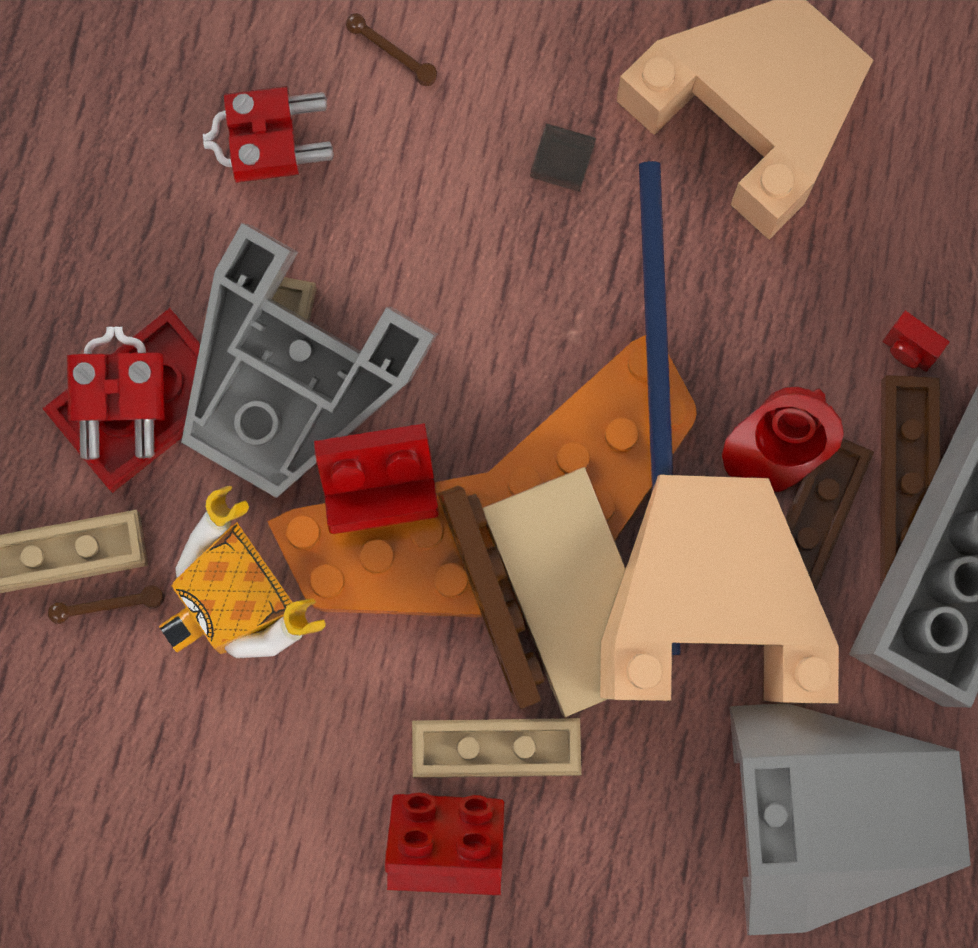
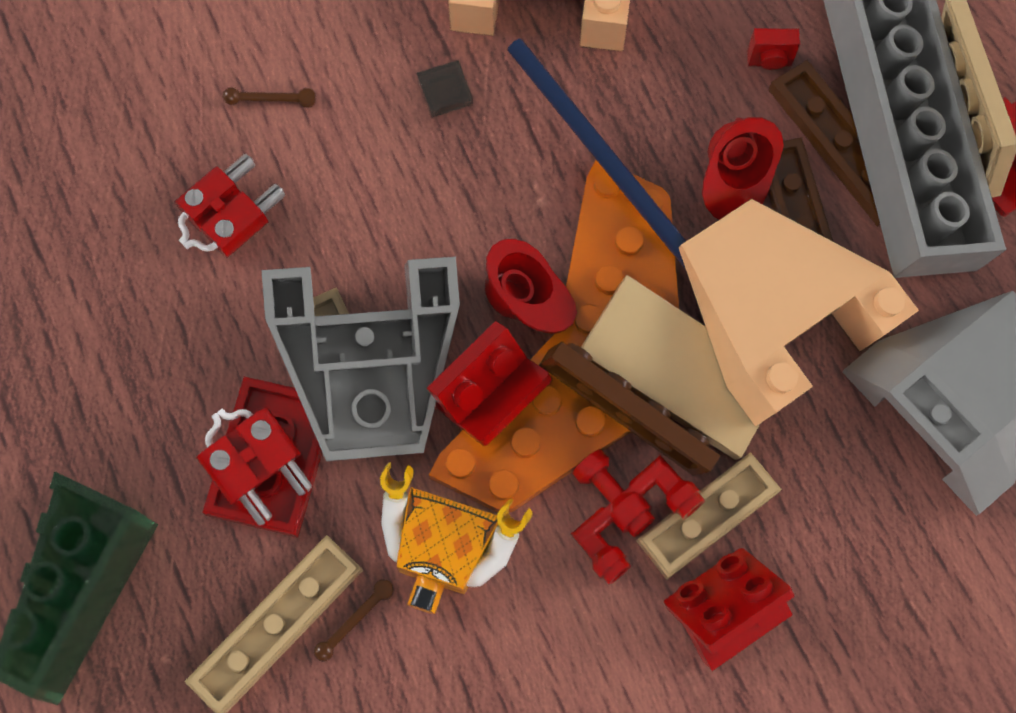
camera: 35 degrees left, 5 degrees down
(423, 685) = (627, 508): none -> red piece
(487, 412) = (526, 287): none -> red piece

